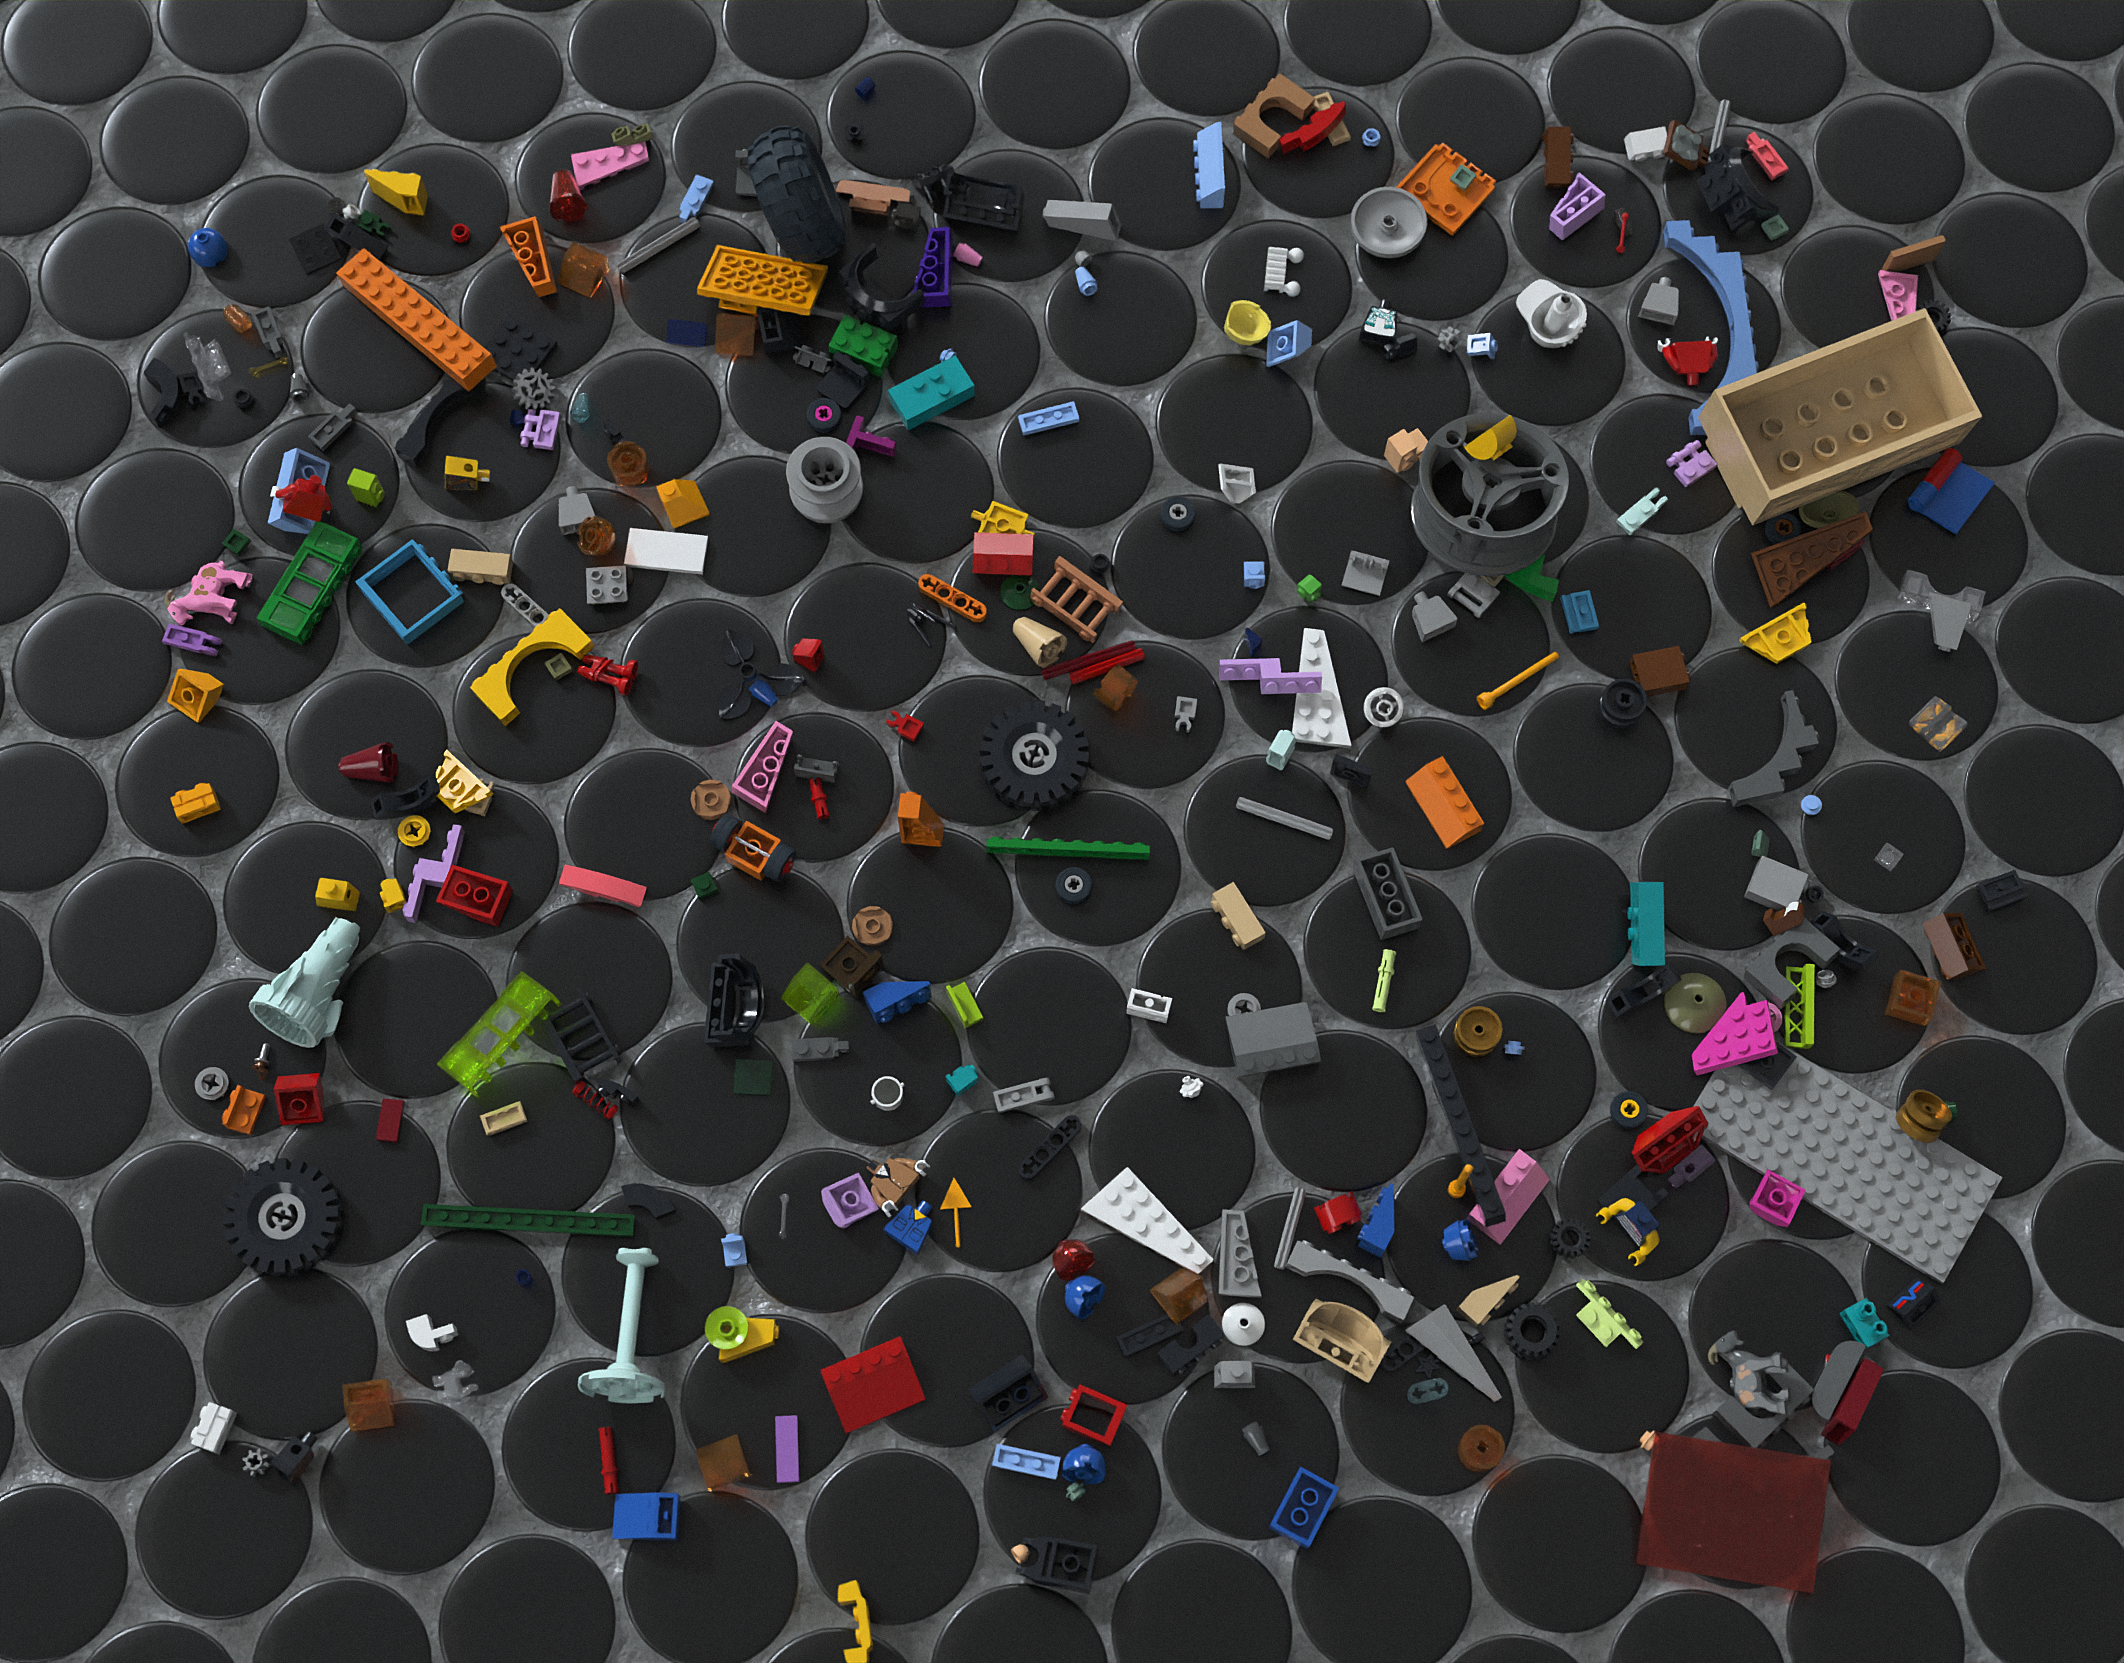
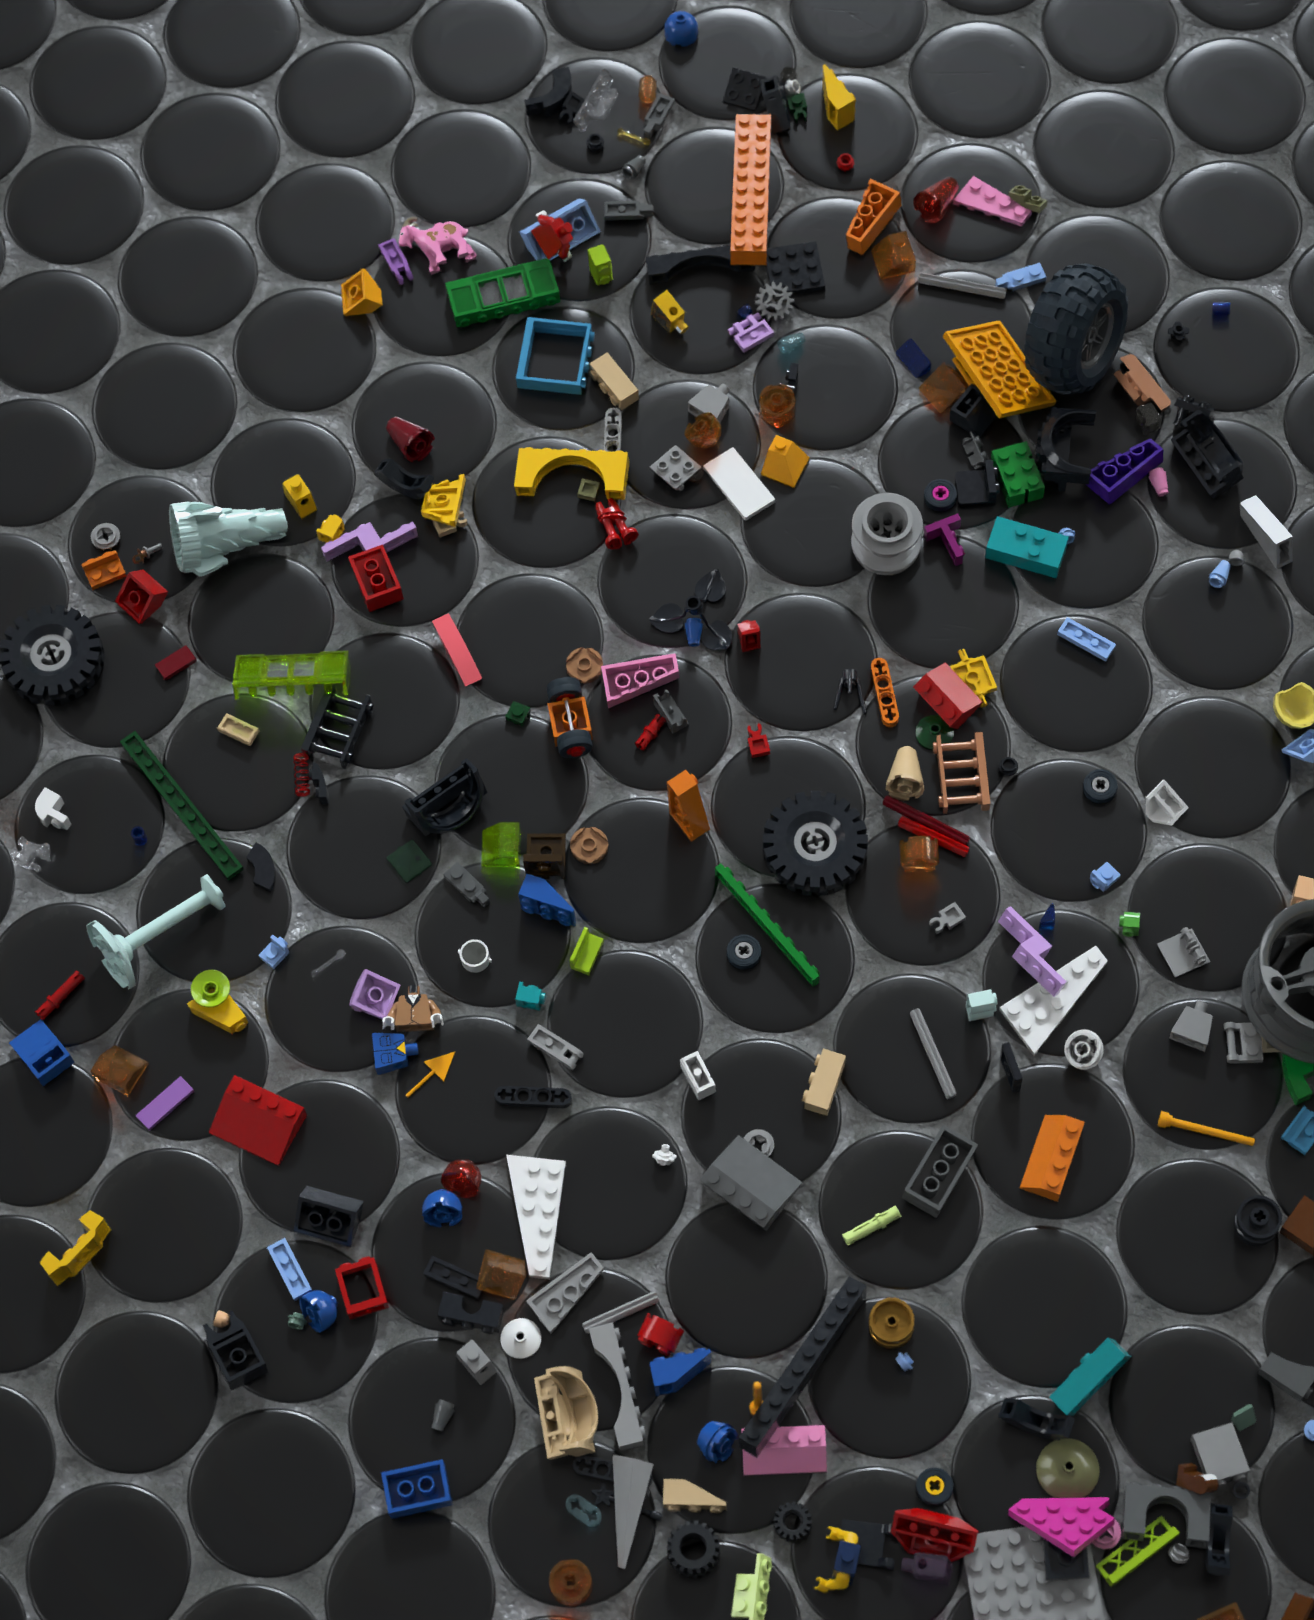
camera: 55 degrees right, 5 degrees down
(195, 802) = (285, 360): light orange brick -> none
(236, 542) = (489, 226): dark green plate -> none
(418, 823) = (384, 498): yellow gear -> none

